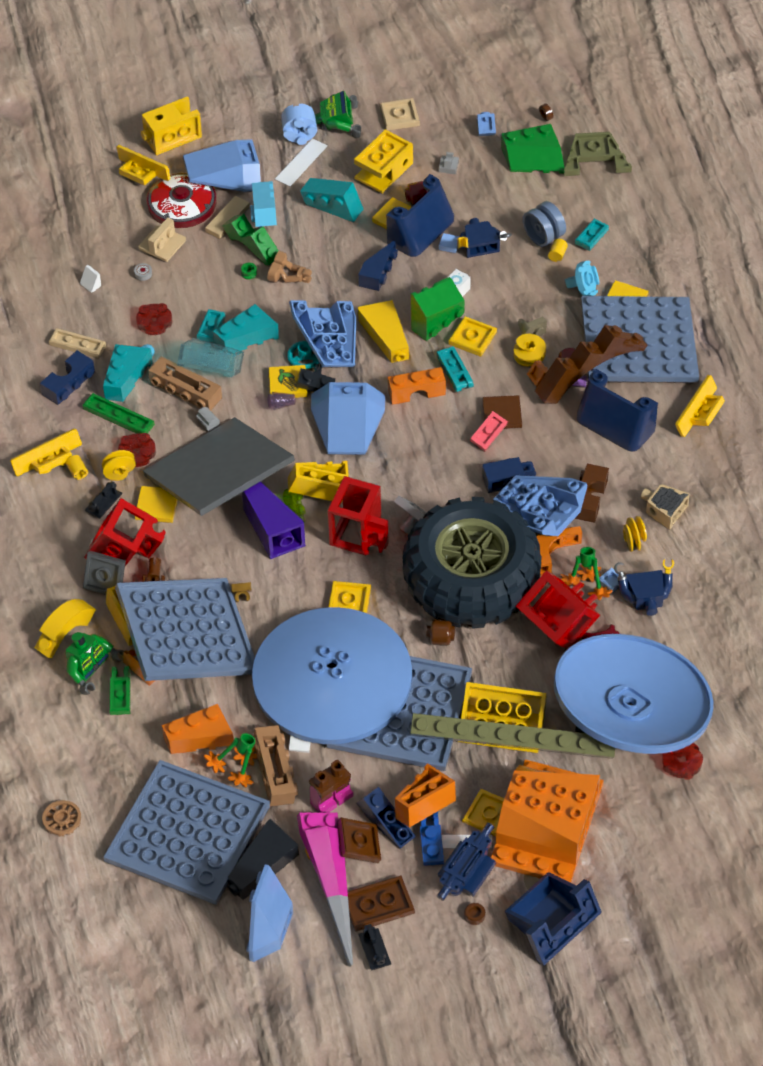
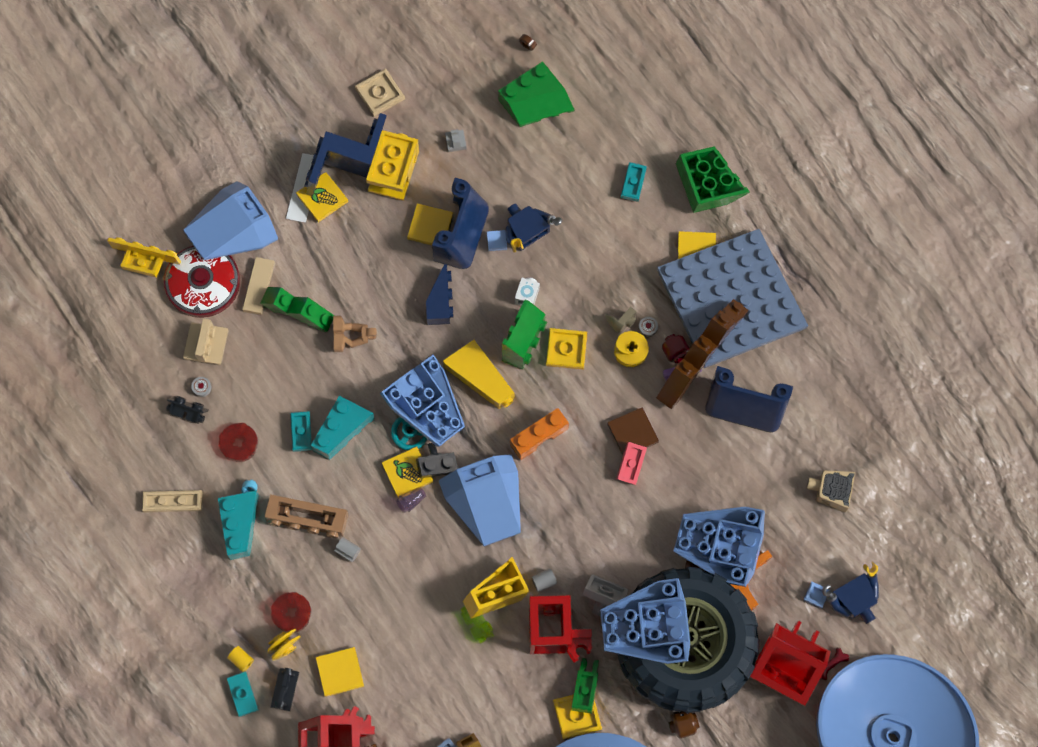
camera: 25 degrees left, 20 degrees up
(47, 455) = (206, 656): yellow bracket -> none
(59, 388) = (179, 568): dark blue arch -> none
(66, 494) = (242, 694): none -> teal plate
(90, 279) = (151, 417): white slope -> none
(118, 414) = (253, 575): green tile -> none
(127, 287) = (194, 410): none -> black hinge
(171, 126) = (150, 198): yellow torso -> none
(210, 357) = (320, 477): clear light blue wedge -> none
(218, 466) = (388, 613): dark grey tile -> none
(248, 275) = (307, 352): green bush -> none
(263, 210) = (296, 270): medium azure wedge -> none
(273, 521) = (466, 656): dark purple slope -> none
(299, 123) = (285, 146): light blue brick -> none
(312, 167) = (325, 200): none -> yellow tile
(333, 197) = (358, 227): teal wedge -> none
(337, 113) = (317, 115): green torso -> none
(341, 139) = (344, 154): none -> dark blue bracket
(365, 577) = (585, 688): none -> green hinge
(415, 192) = (440, 191): dark red head -> none
(439, 518) = (649, 624): none -> medium blue wedge
(455, 369) = (567, 397): teal plate -> none
(486, 124) = (474, 78): medium blue bracket -> none
(500, 473) = (669, 508): dark blue brick -> none
(537, 372) = (651, 374): orange tile -> none
(544, 223) = (586, 190): sand blue wheel -> none
(554, 341) = (648, 326): none -> light grey tile
(557, 250) = (608, 213): yellow piece -> none
(585, 279) = (650, 245): medium azure tile -> none
(590, 570) = (796, 594): plant -> none
(595, 147) = (593, 71): olive wing -> none
(596, 480) = (754, 484): reddish brown arch -> none
(634, 531) = (820, 538): yellow piece -> none
(660, 249) = (708, 179): none -> green wedge
(701, 407) = (824, 359): yellow bracket -> none

